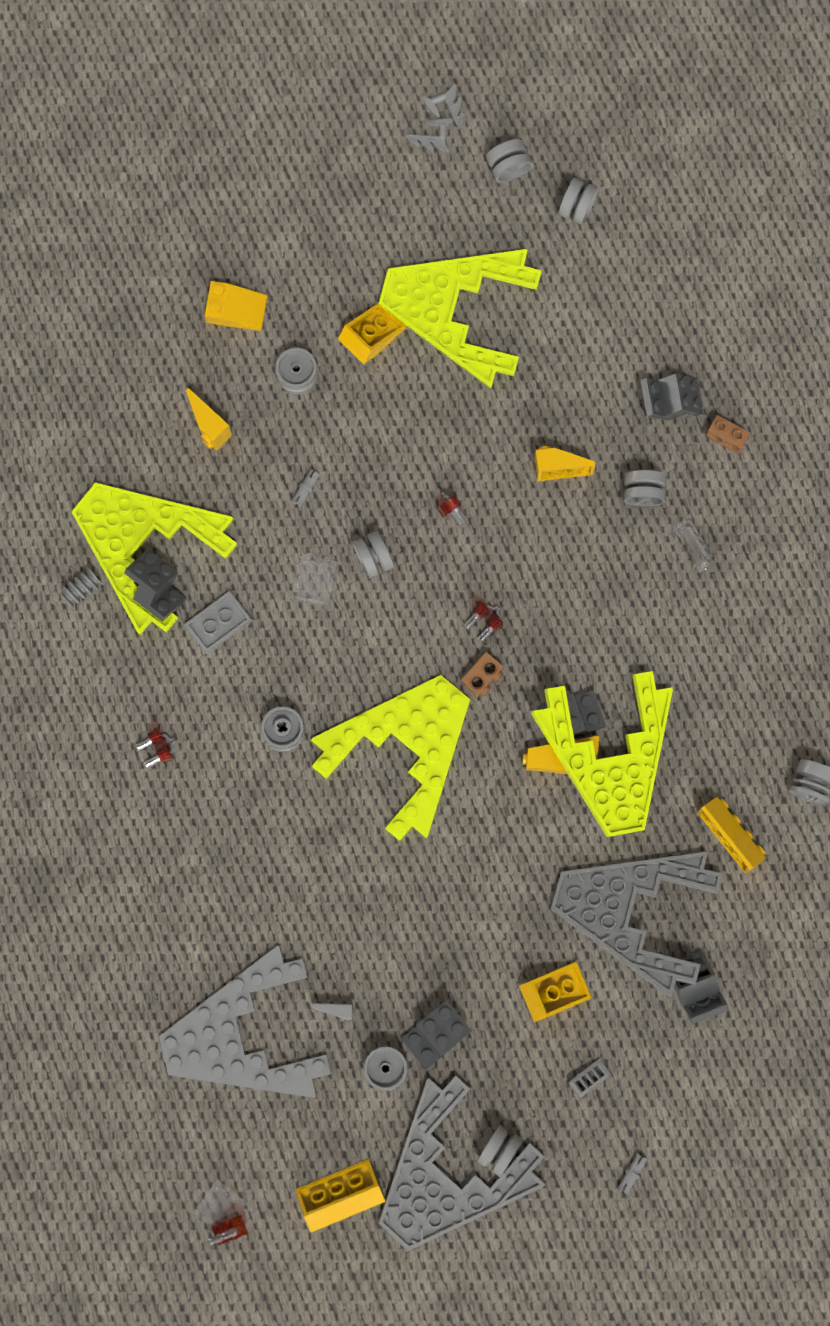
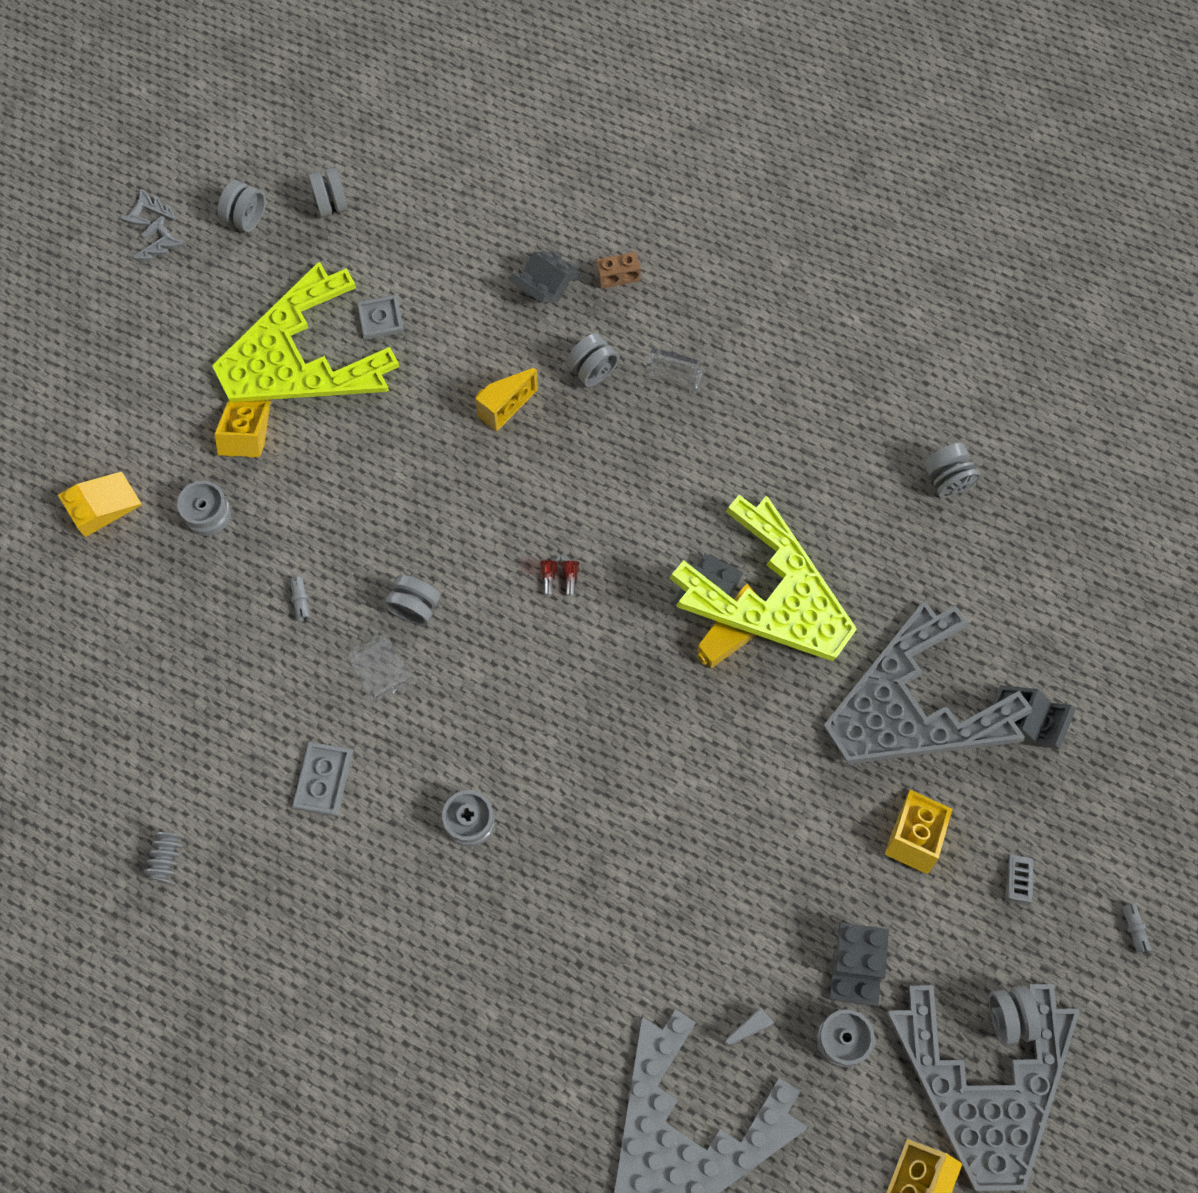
camera: 45 degrees left, 10 degrees down
(122, 520) = (153, 769): neon yellow wing -> none
(155, 585) = (233, 790): dark grey bracket -> none
(156, 738) = (377, 939): piece -> none
(212, 427) = (162, 612): yellow slope -> none
(427, 723) = (589, 703): neon yellow wing -> none
(451, 506) = (444, 507): piece -> none
(478, 672) = (600, 621): medium nougat brick -> none
(533, 327) = (380, 317): none -> light grey tile
(731, 834) = (930, 570): yellow slope -> none

